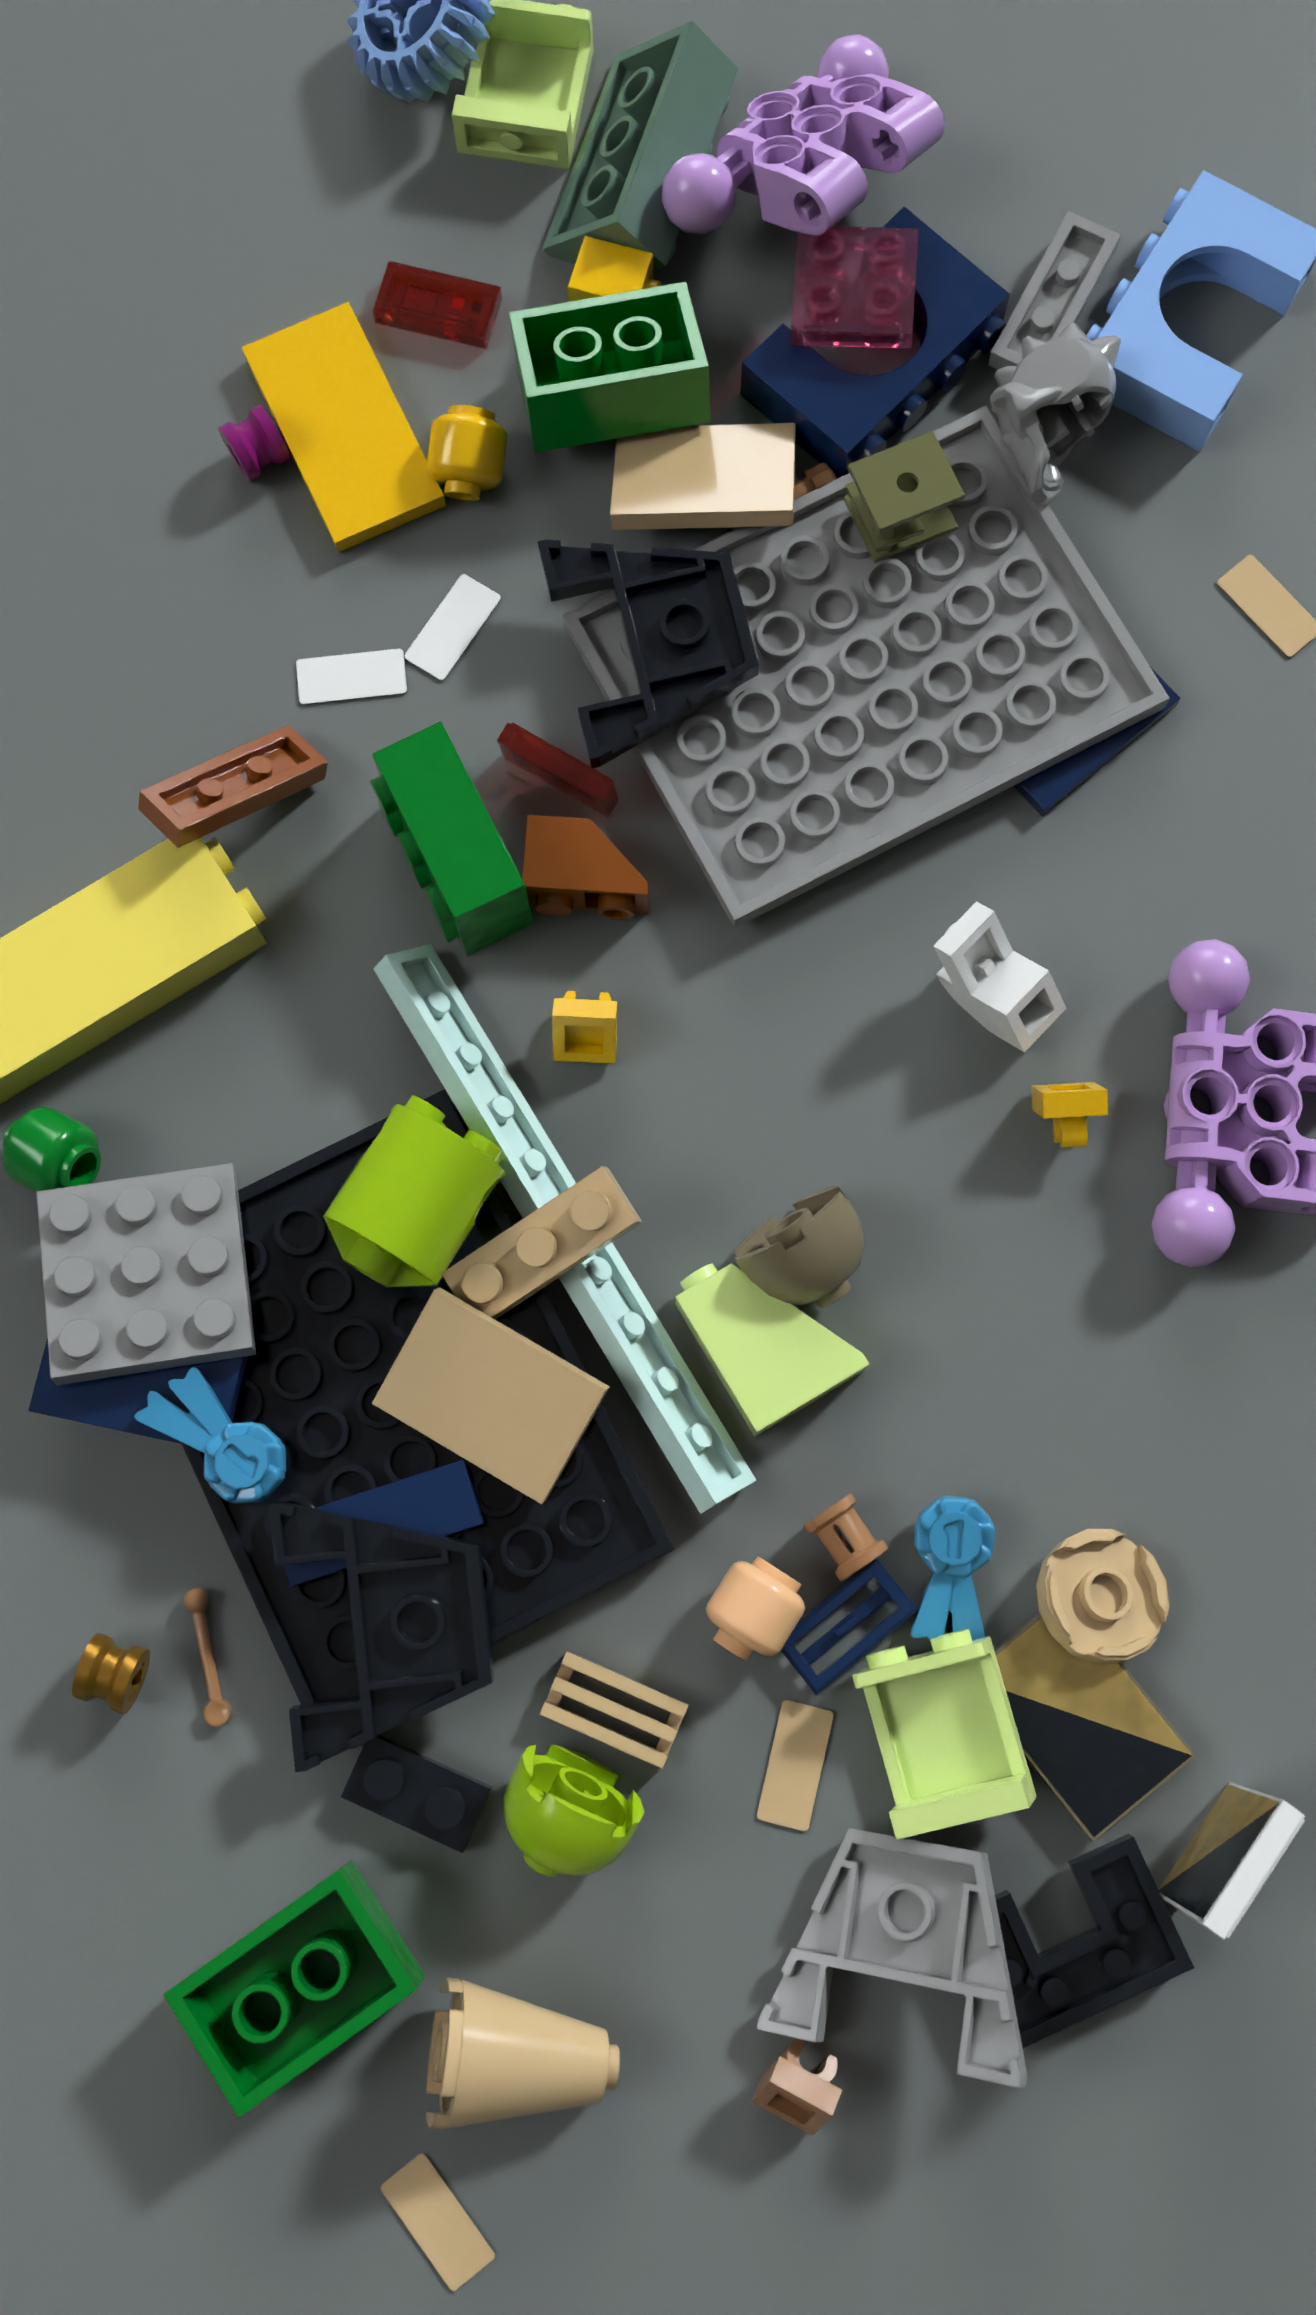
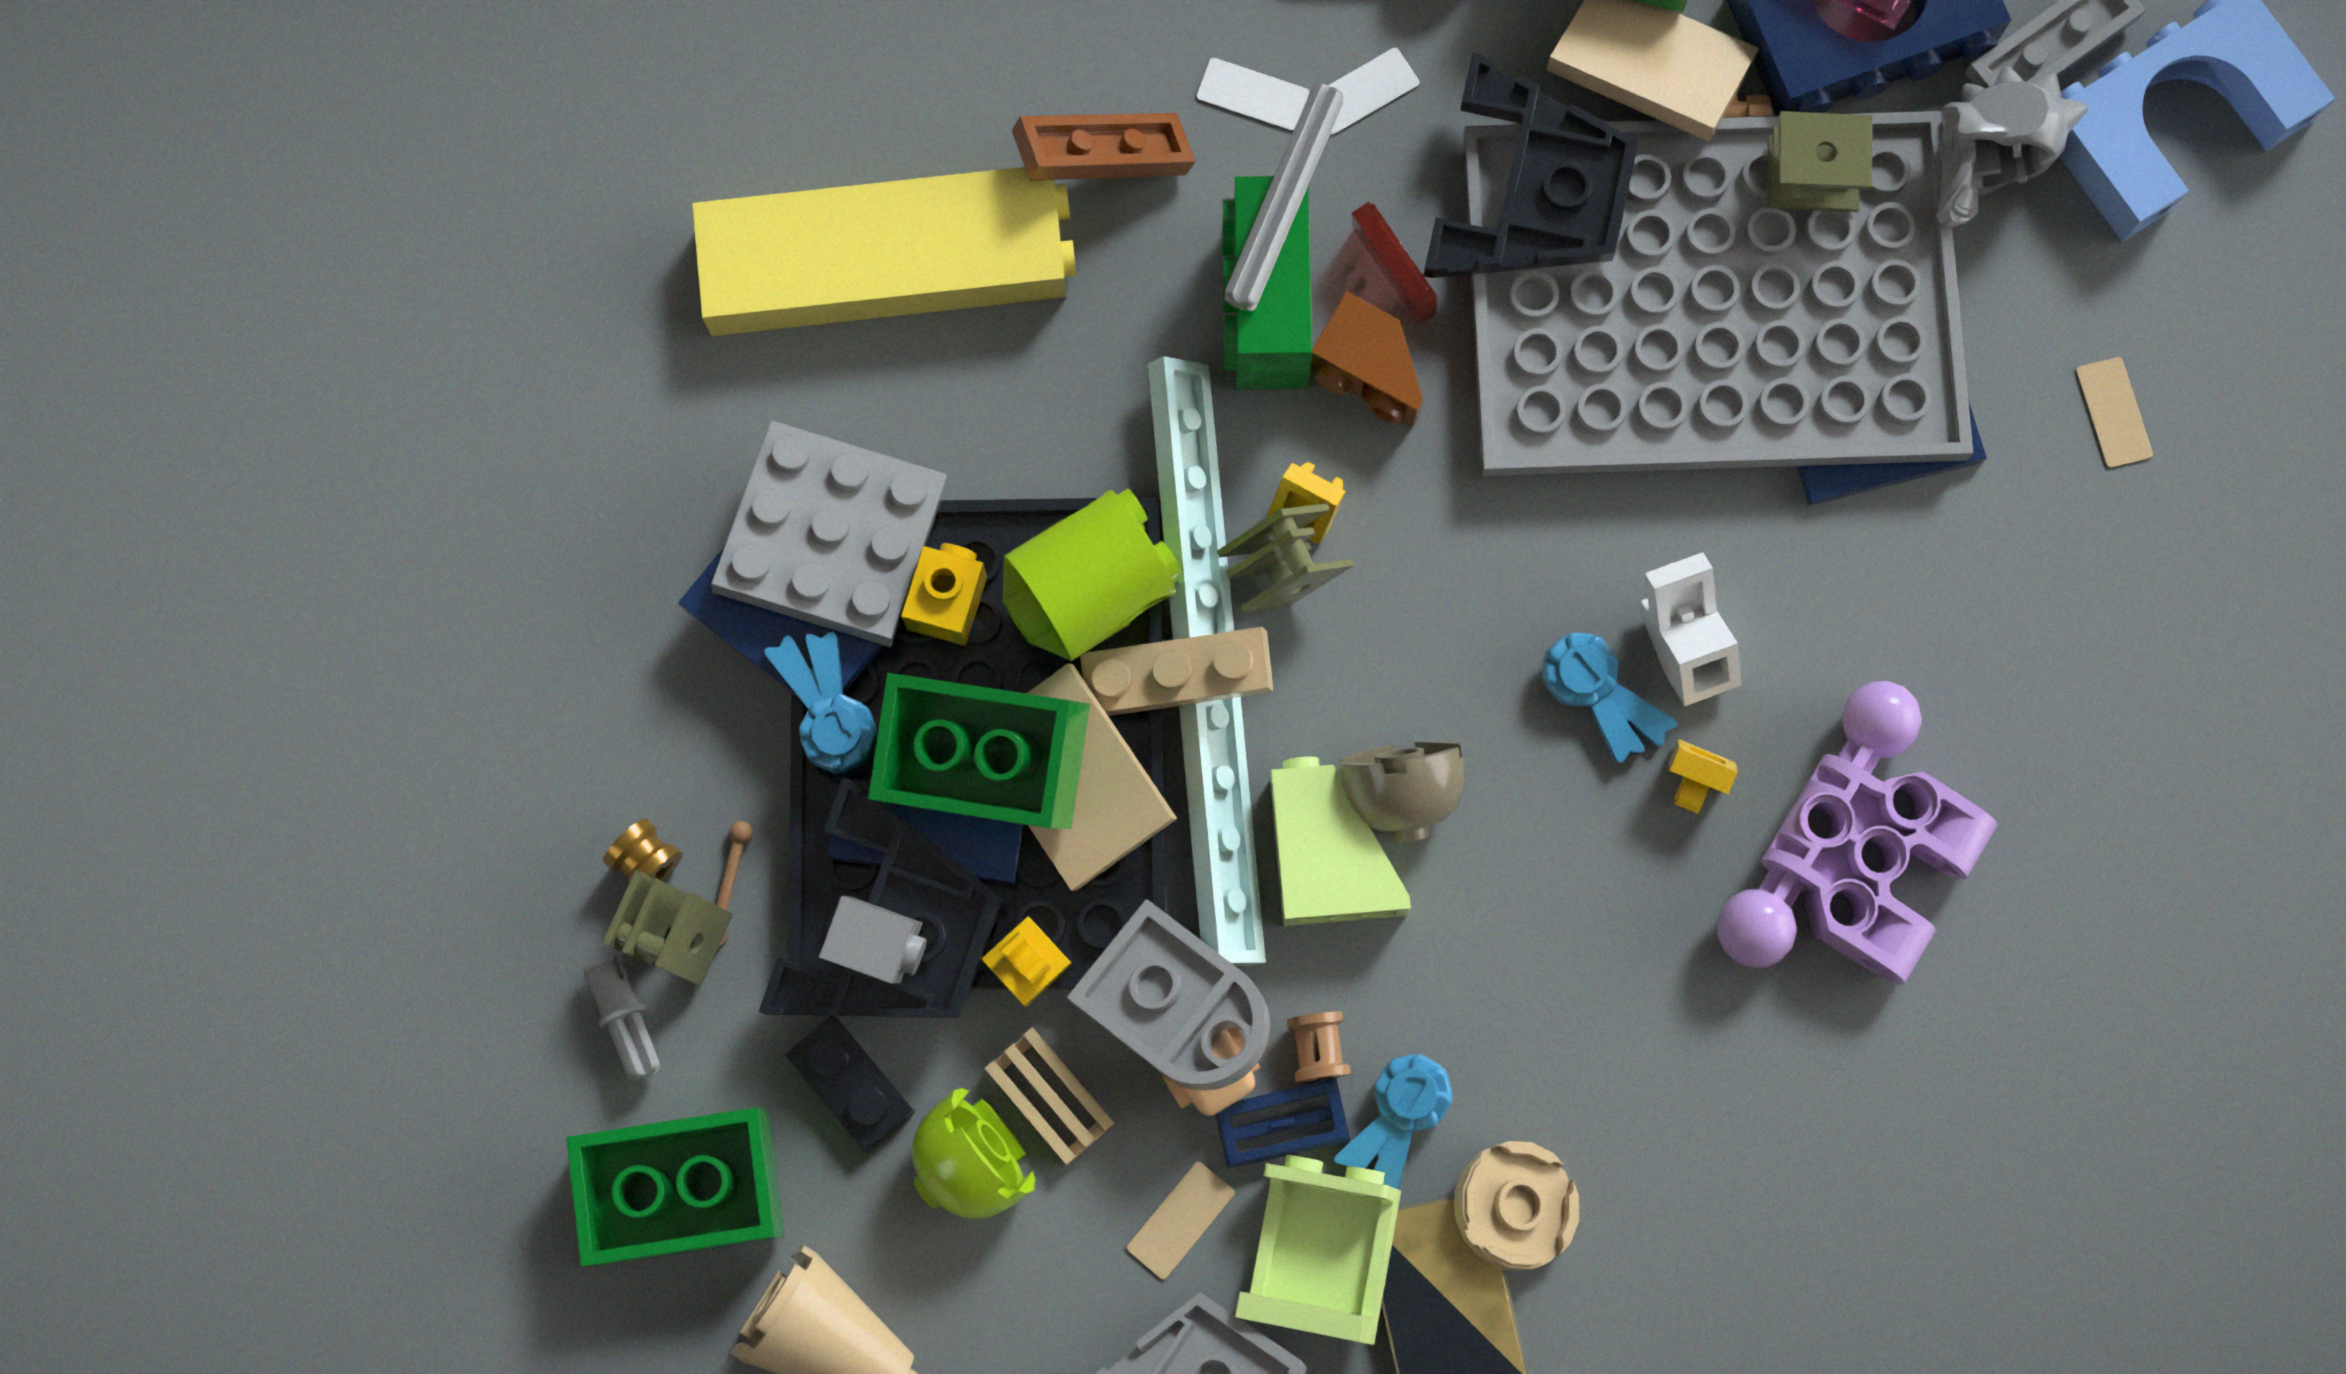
camera: 25 degrees right, 0 degrees up
(50, 1151) = (797, 390): green head -> none
(140, 1733) = (647, 913): none -> olive piece
(164, 1838) = (622, 1016): none -> light grey axle
(284, 1277) = (945, 593): none -> yellow brick
(374, 1651) = (873, 941): none -> light grey brick
(389, 1417) = (979, 751): none -> green brick
(428, 751) = (1284, 197): none -> light grey axle
(531, 1593) = (1026, 961): none -> yellow tile
(577, 1079) = (1275, 545): none -> olive piece
(687, 1564) = (1171, 998): none -> light grey tile
(917, 1066) = (1583, 673): none -> dark azure piece

